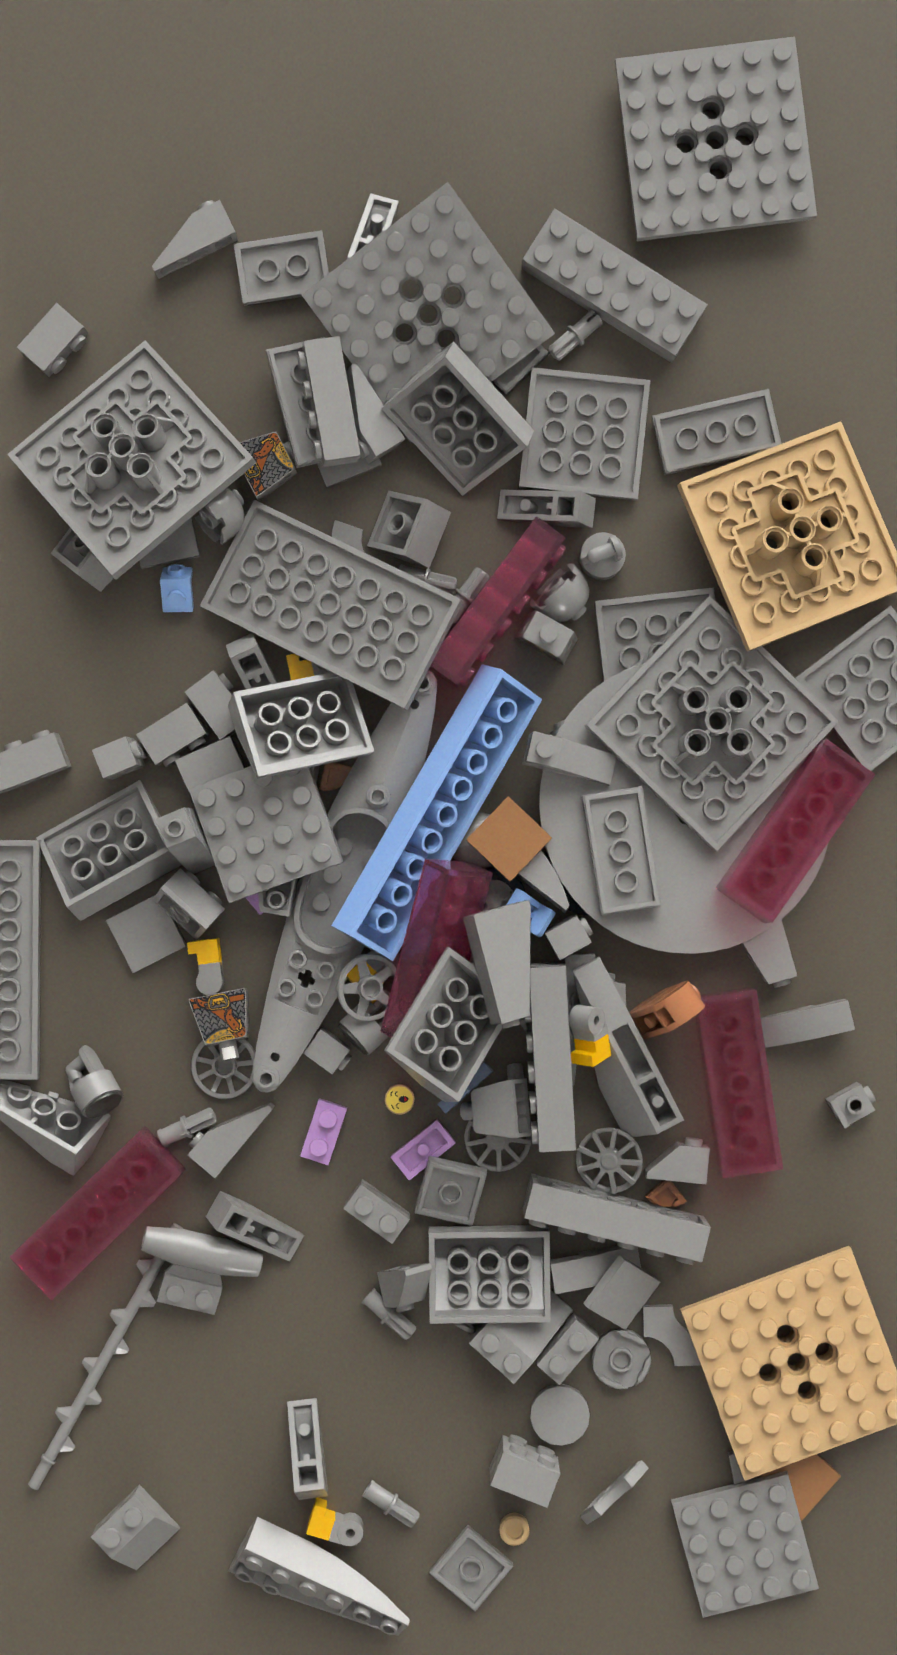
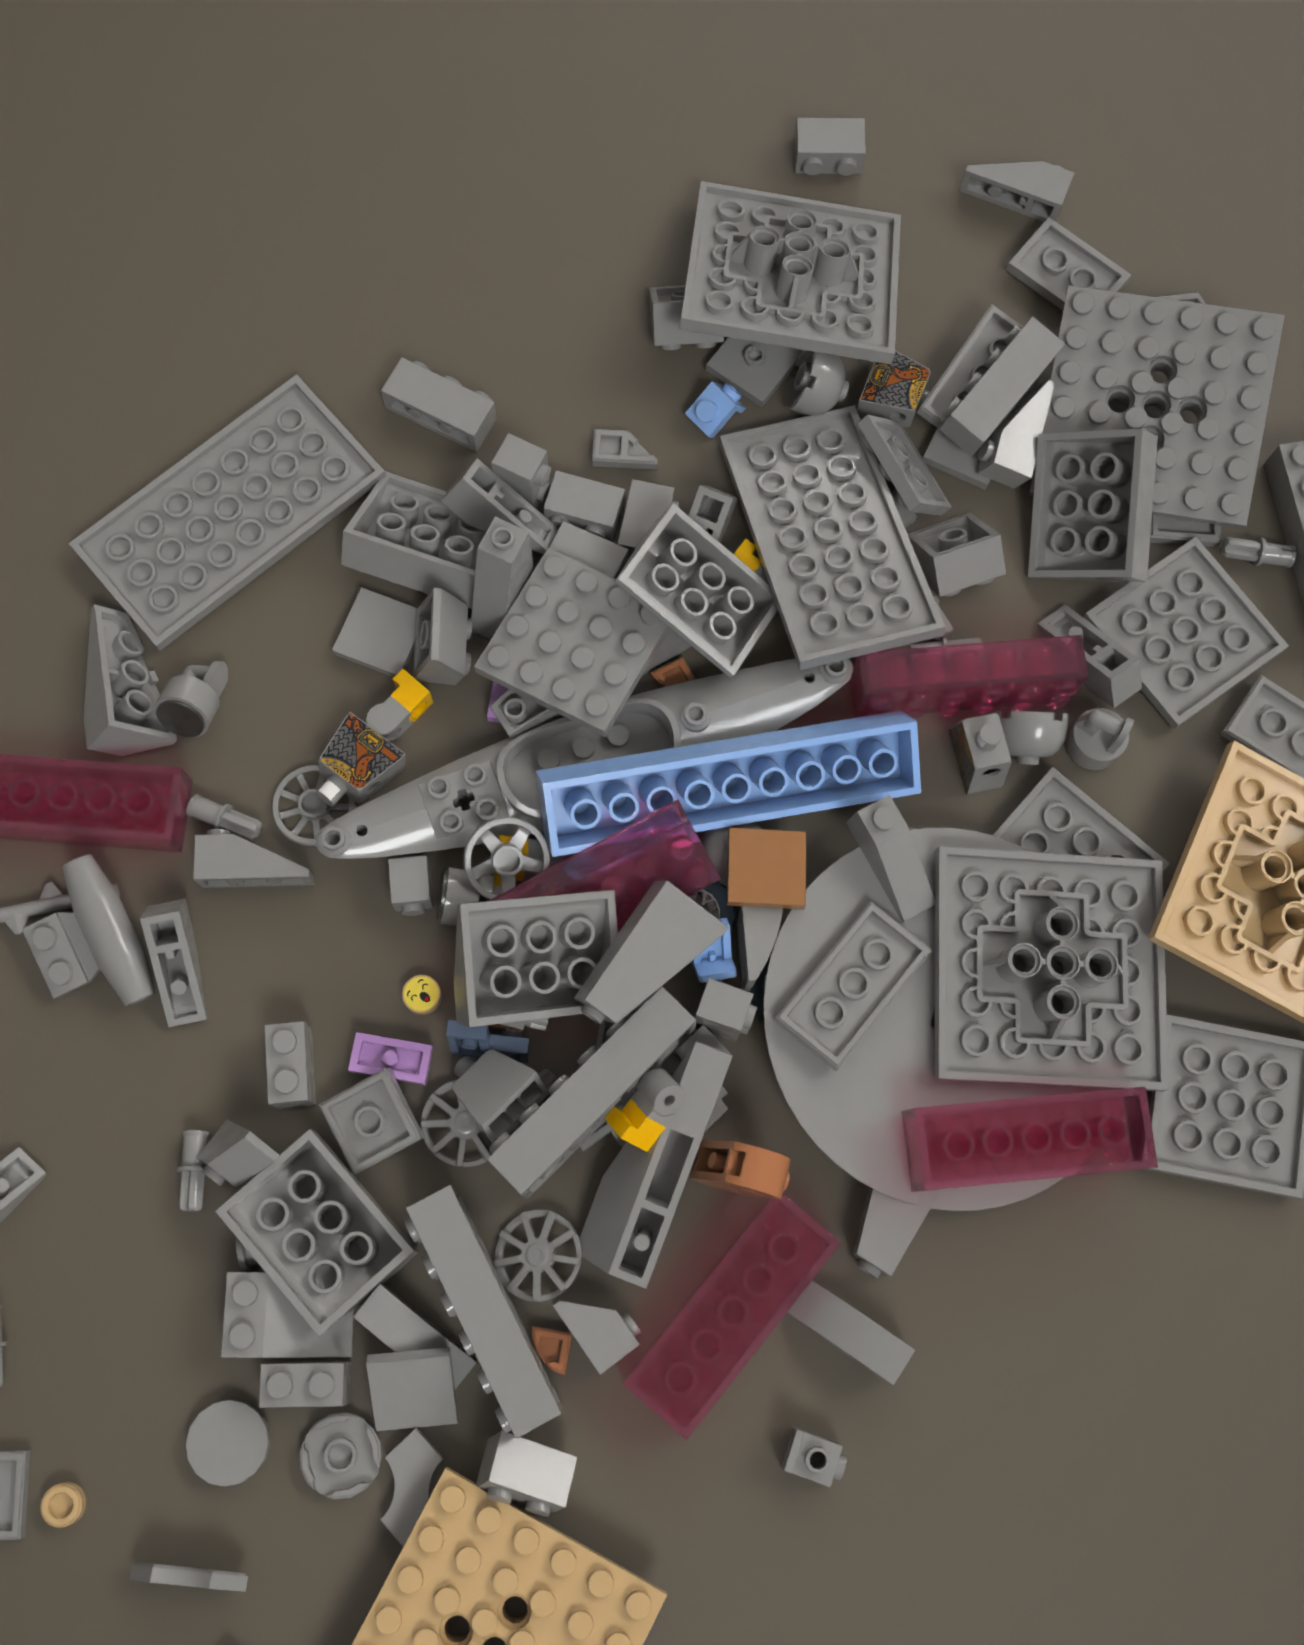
camera: 45 degrees right, 15 degrees down
(130, 794) = (482, 495): none -> light grey slope
(151, 675) = (620, 450): none -> light grey tile
(323, 1131) = (327, 950): lavender plate -> none
(325, 509) = (903, 466): none -> light grey plate
(524, 1470) = (135, 1453): light grey brick -> none
(722, 1269) = (526, 1474): none -> brick

